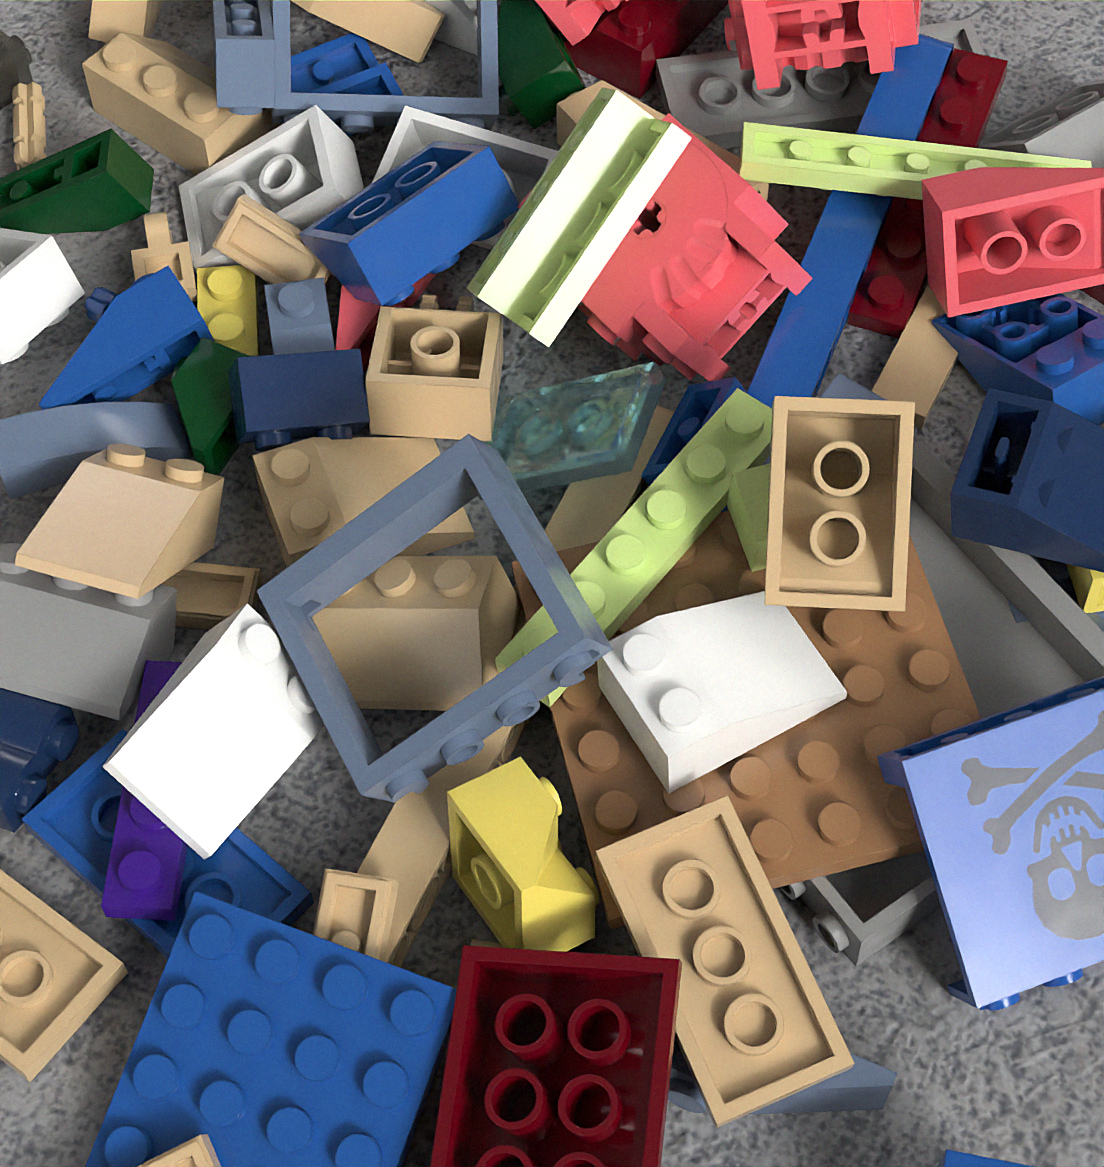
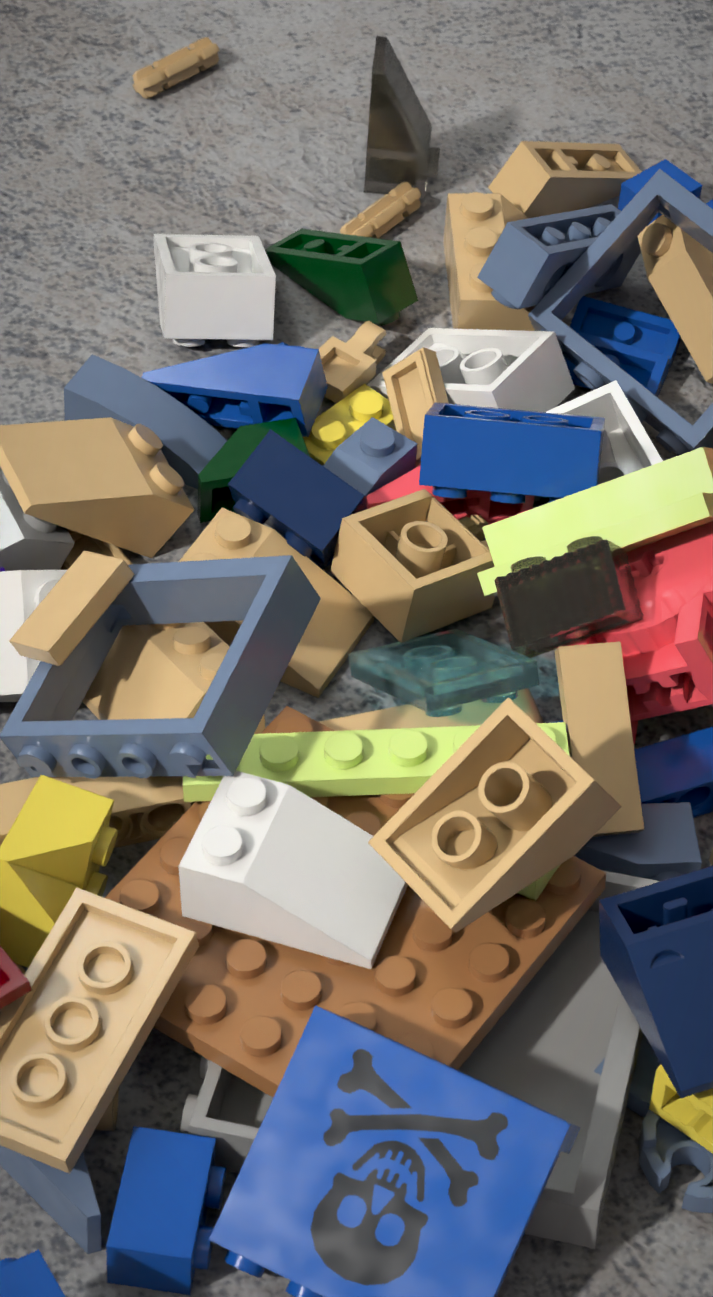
camera: 45 degrees right, 10 degrees down
(295, 638) = (72, 608): none -> tan tile
(636, 291) = (568, 596): none -> clear smoke brick
(742, 355) = (600, 726): none -> tan tile
(908, 1020) = (162, 1211): none -> blue brick

